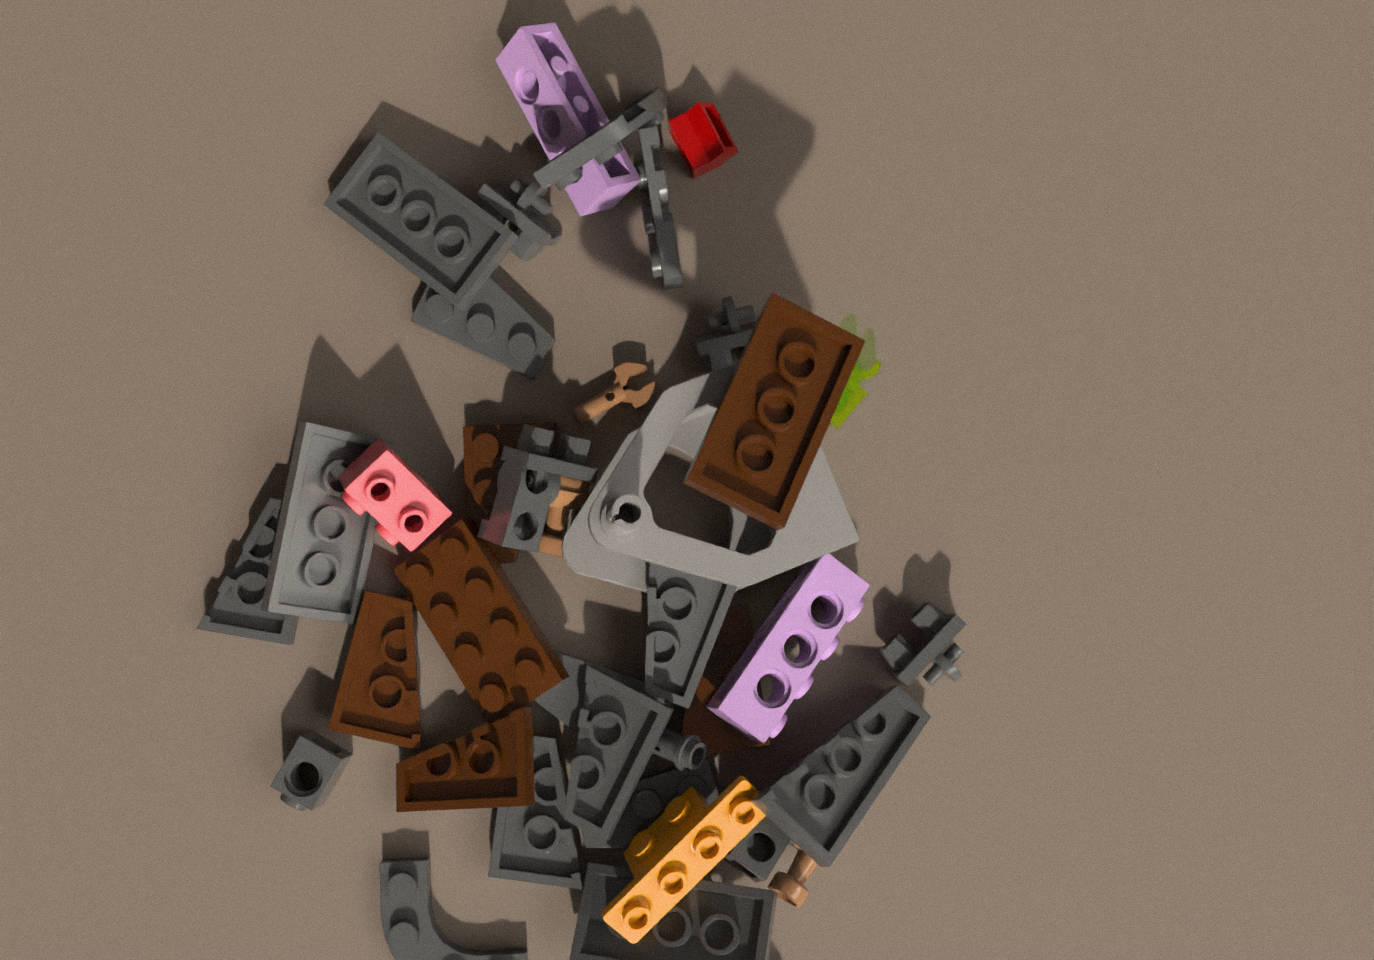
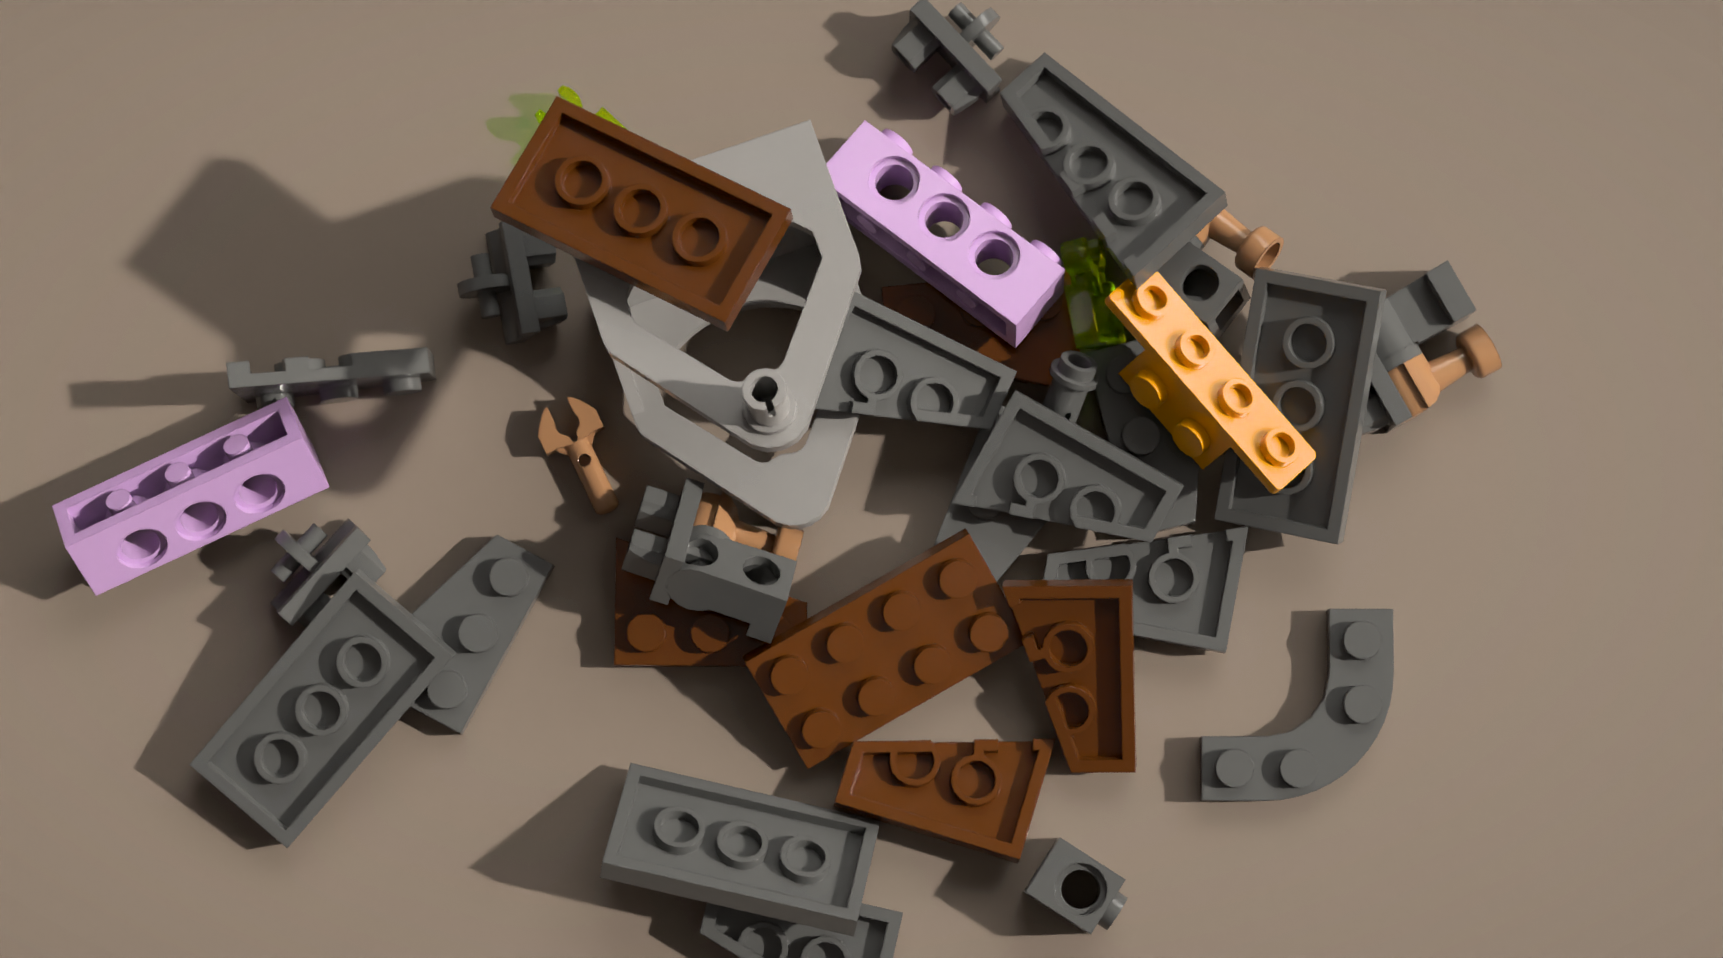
camera: 85 degrees left, 0 degrees up
(393, 495) = (707, 754): coral brick -> none
(603, 142) = (201, 394): dark grey plate -> none
(702, 138) = (226, 313): red piece -> none
(750, 760) = (1091, 319): none -> clear neon green plate

